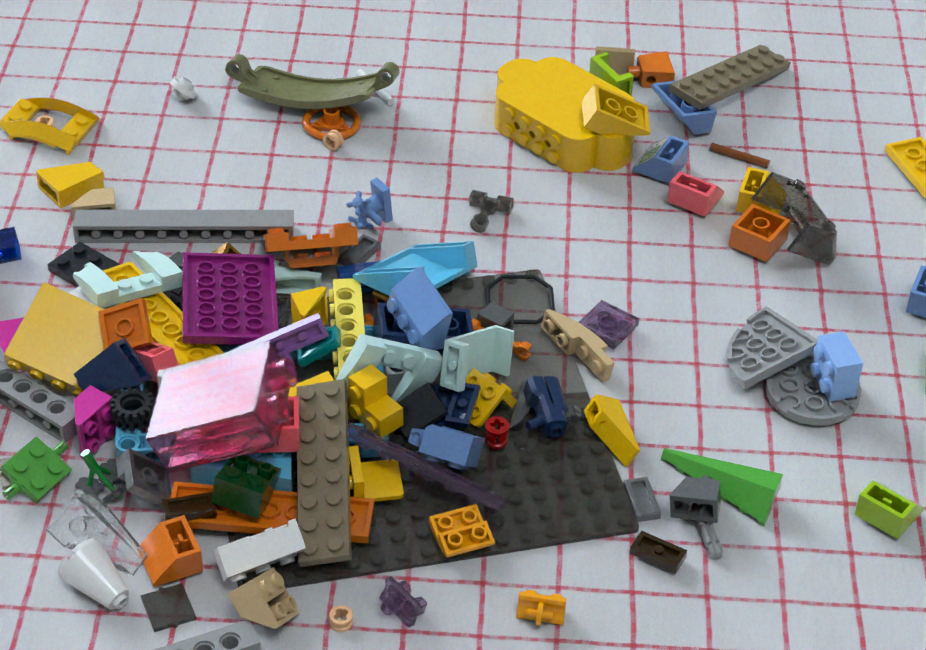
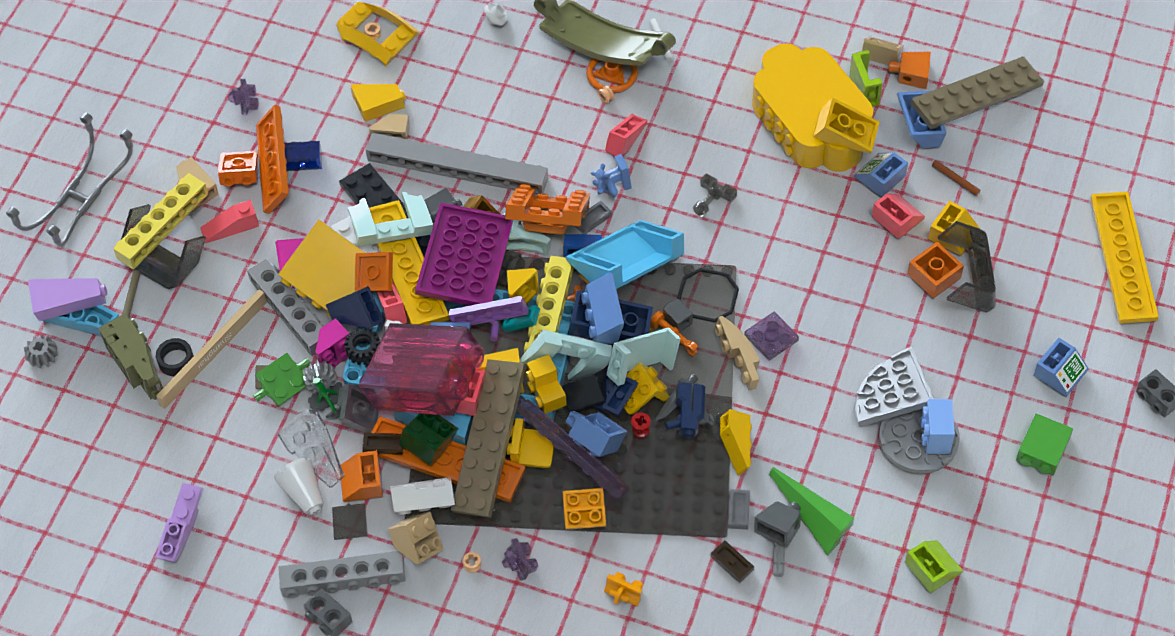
camera: 20 degrees right, 15 degrees up
(74, 459) = (323, 371): none -> light grey gear
(367, 169) = (624, 135): none -> coral slope

